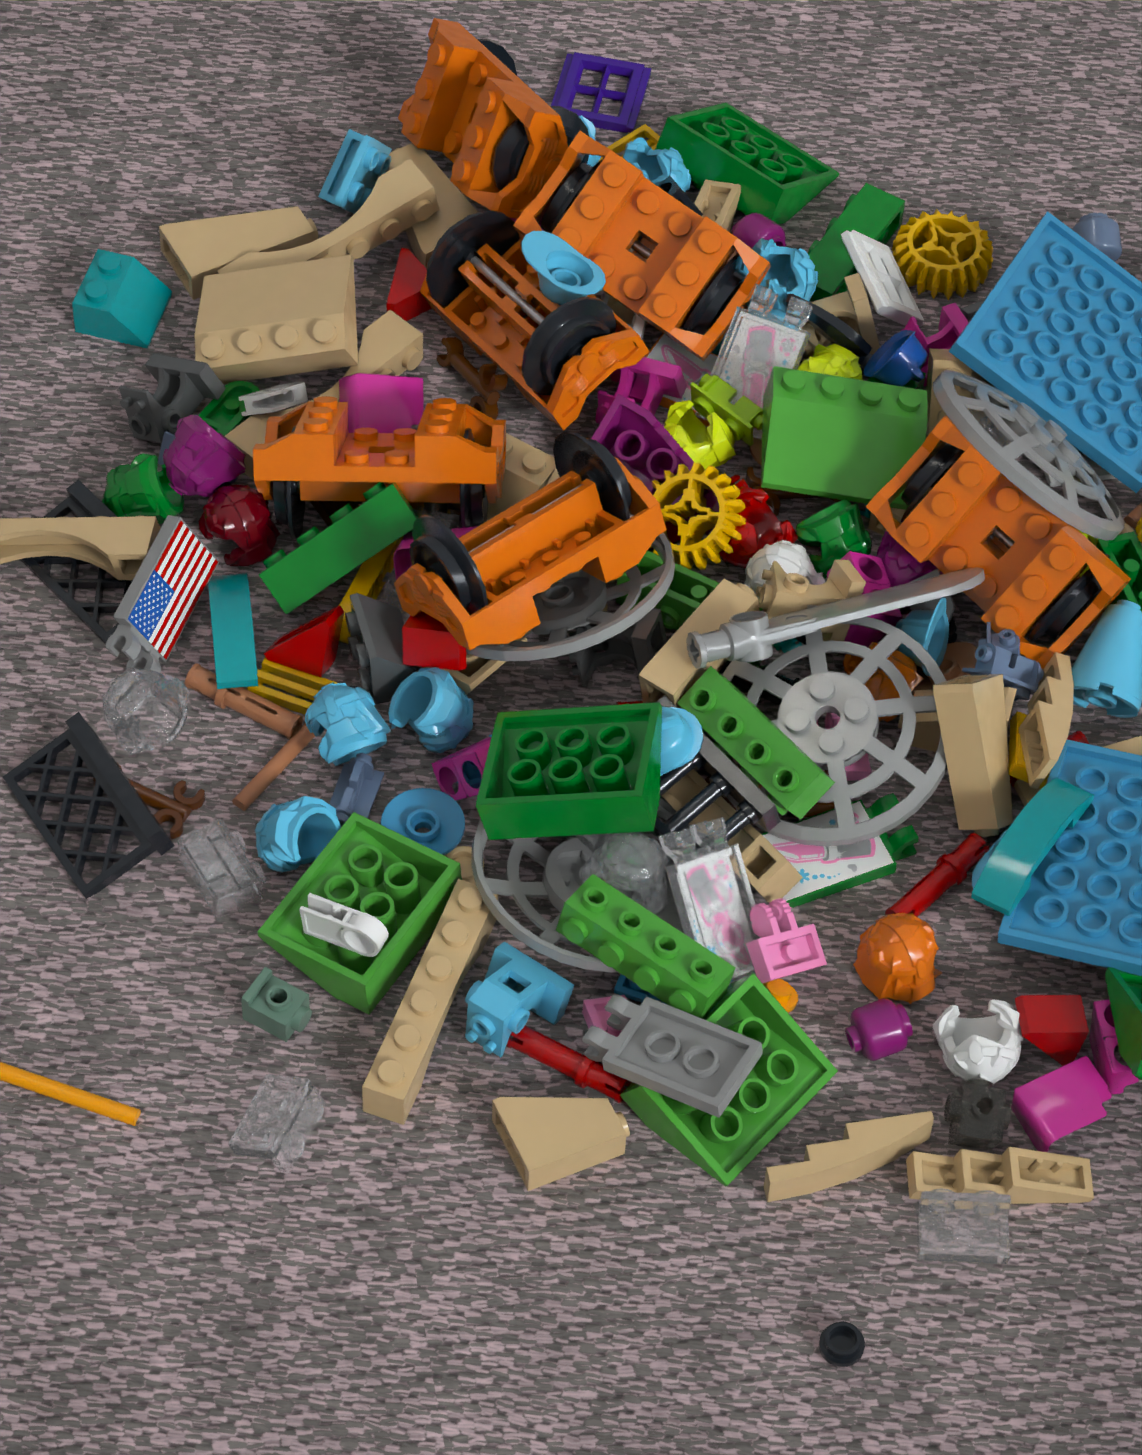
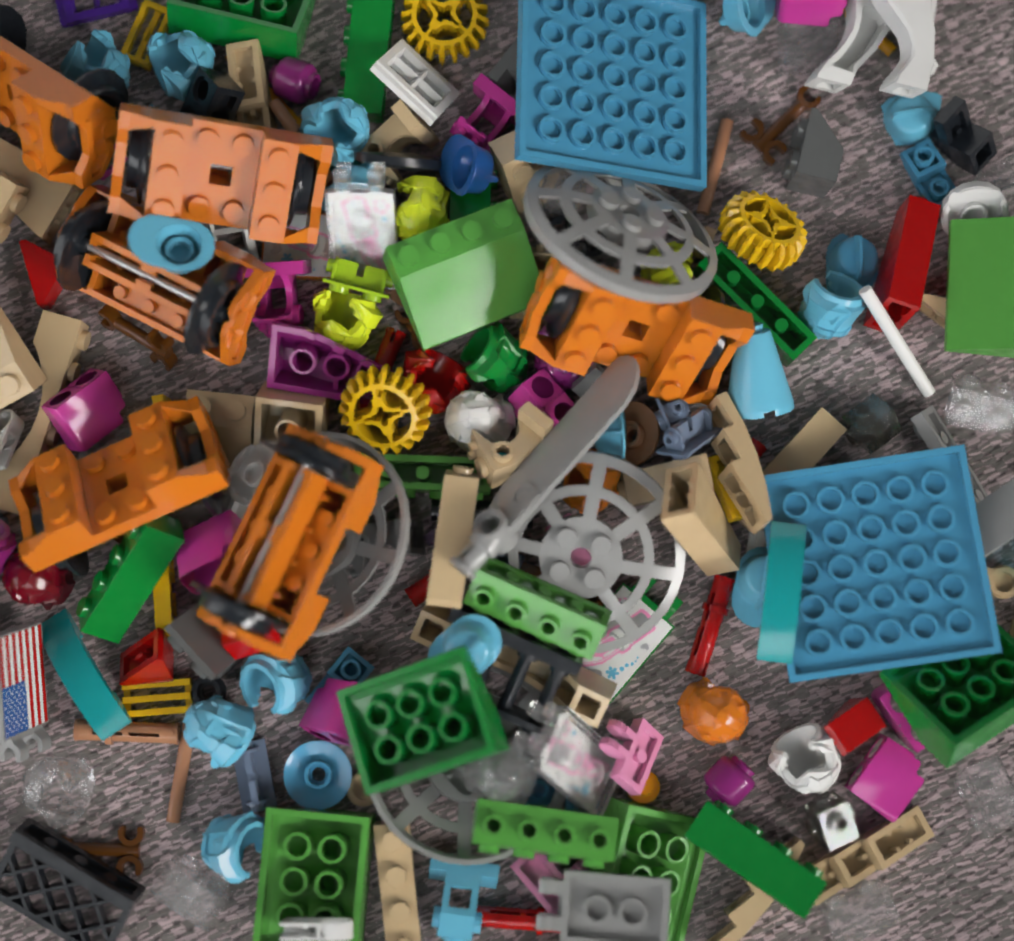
camera: 30 degrees left, 30 degrees up
(868, 1093) = (755, 859): none -> green brick

